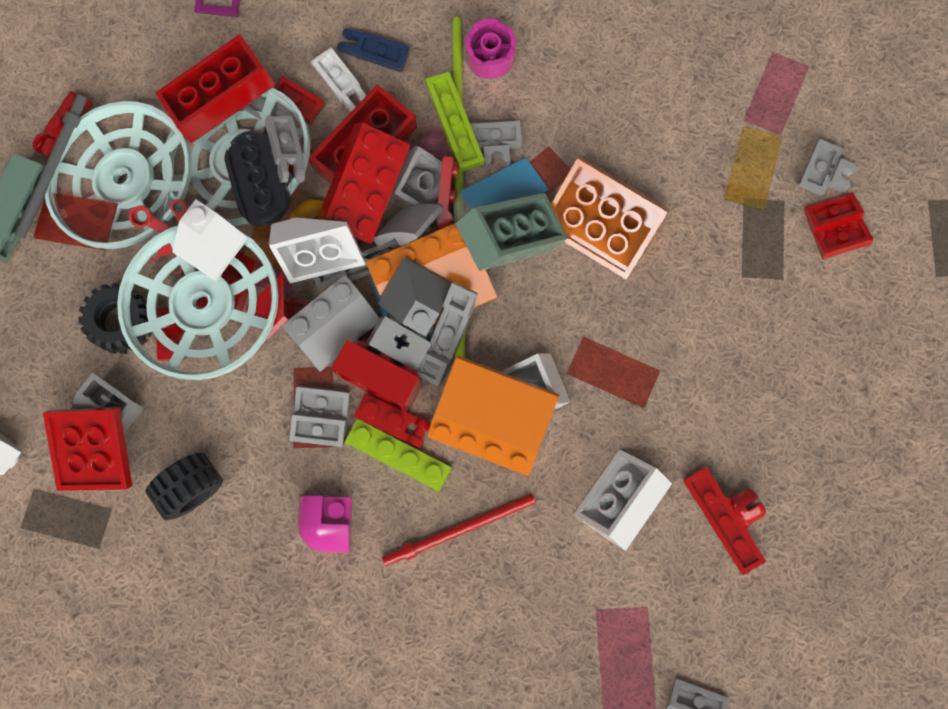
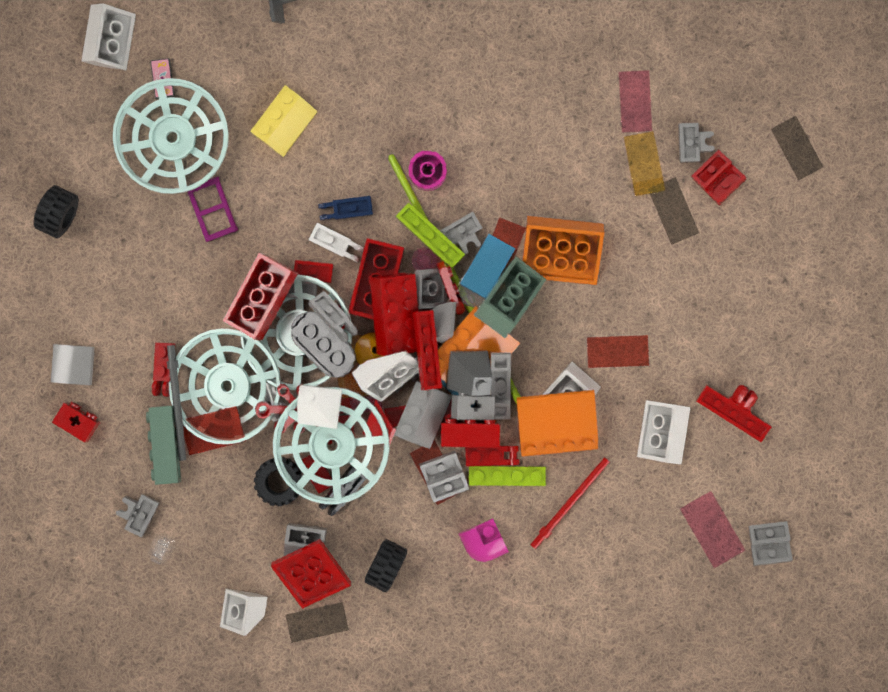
camera: 25 degrees left, 10 degrees up
(191, 365) = (346, 489): none -> black hinge
(376, 240) = (427, 350): none -> red plate

